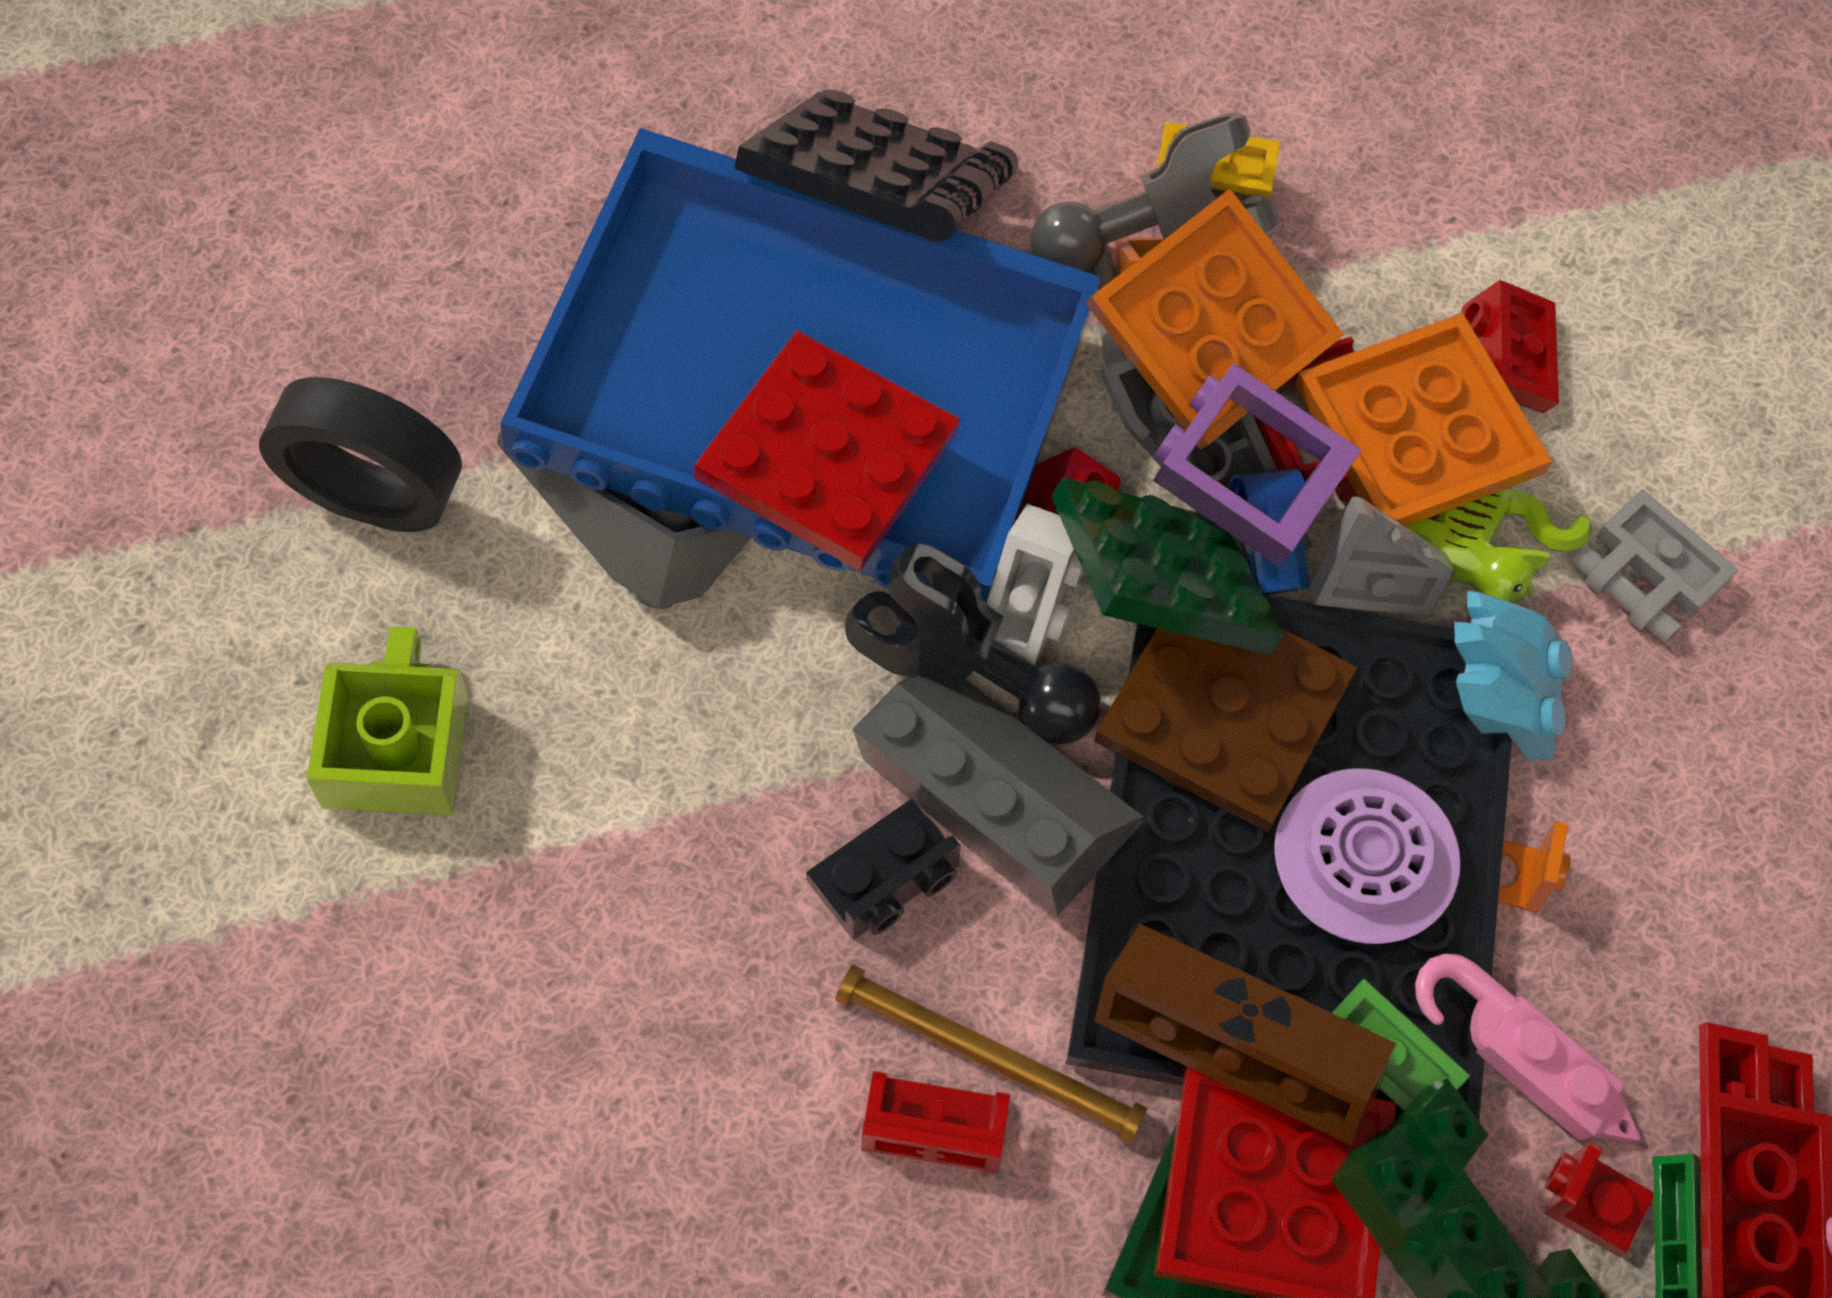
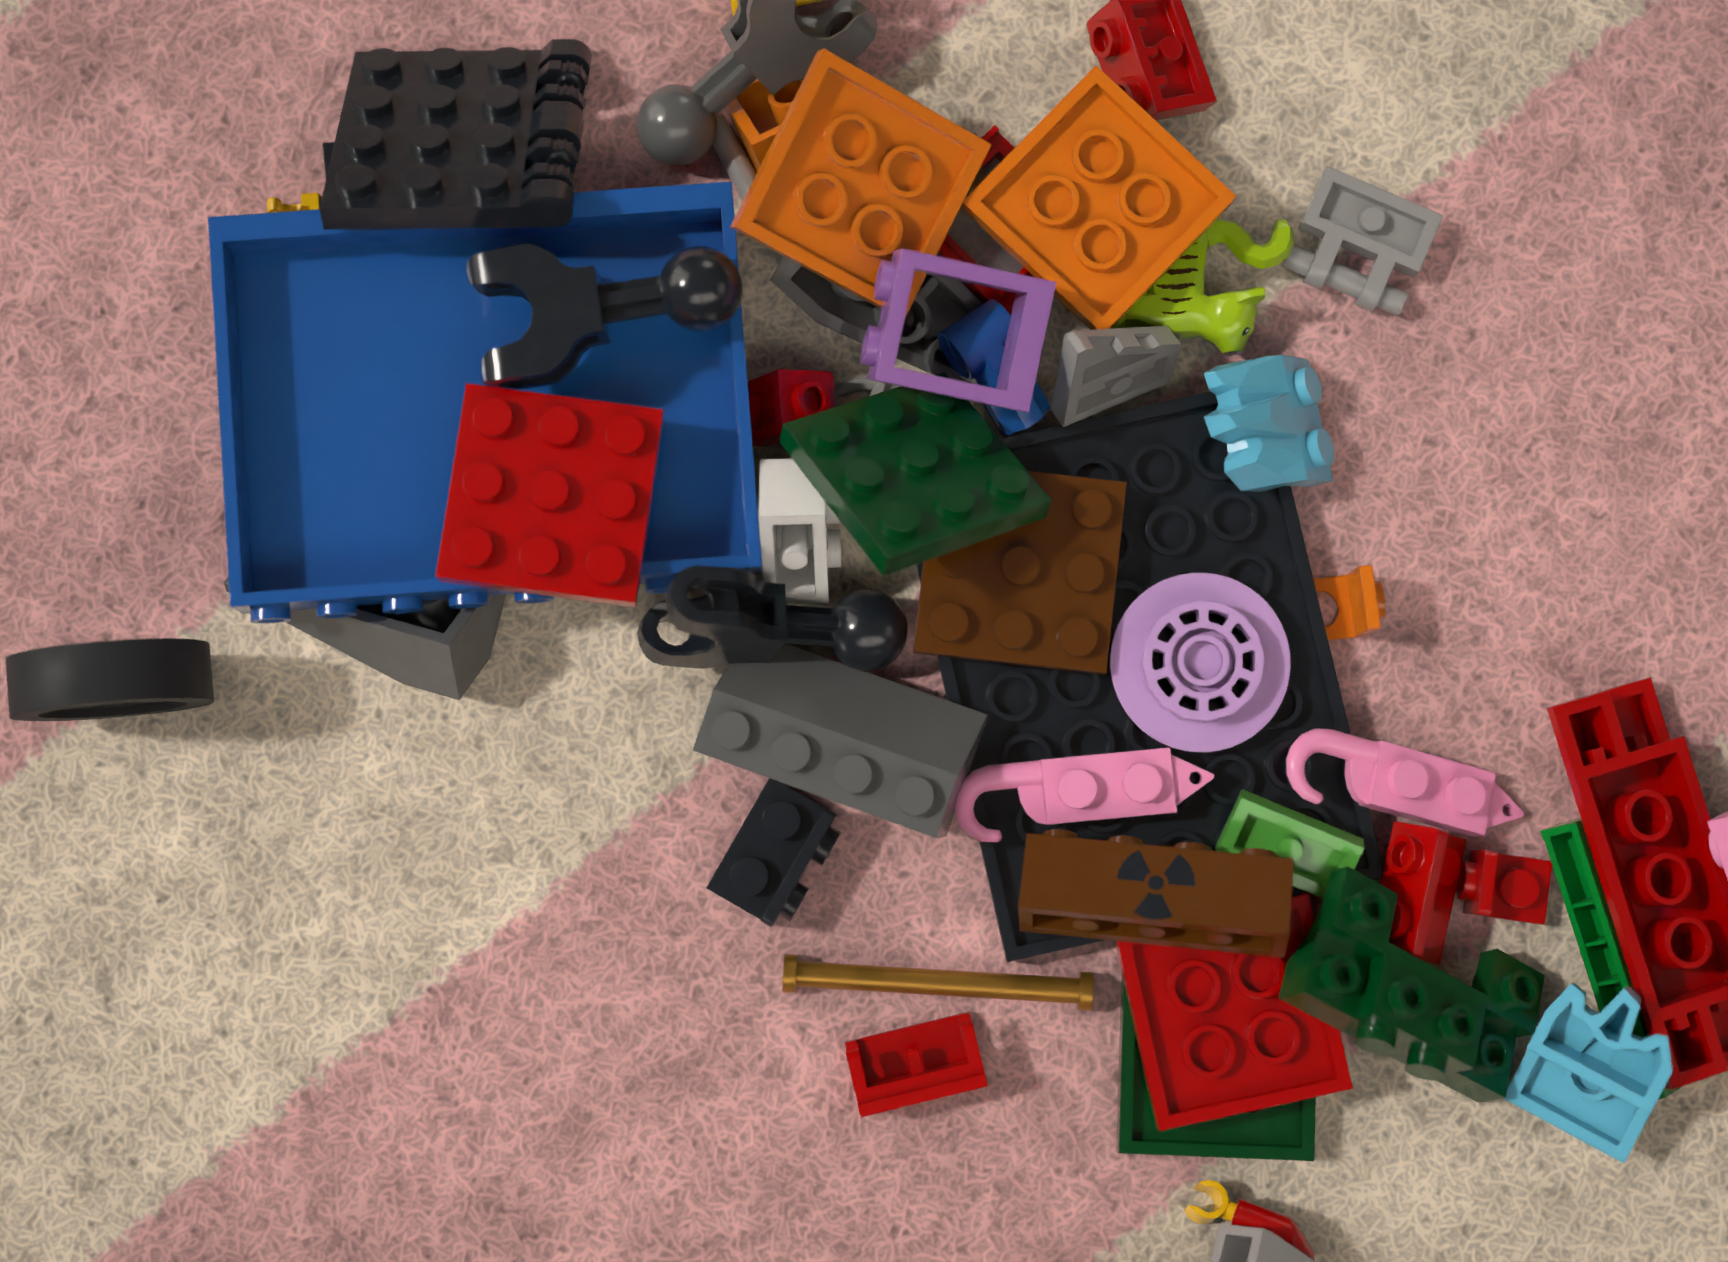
camera: 15 degrees left, 20 degrees up
(389, 733) = (271, 924): lime hinge -> none
(918, 309) = (573, 308): none -> black piece
(1214, 921) = (1083, 788): none -> bright pink plate
(1519, 1150) = (1424, 872): none -> red bracket

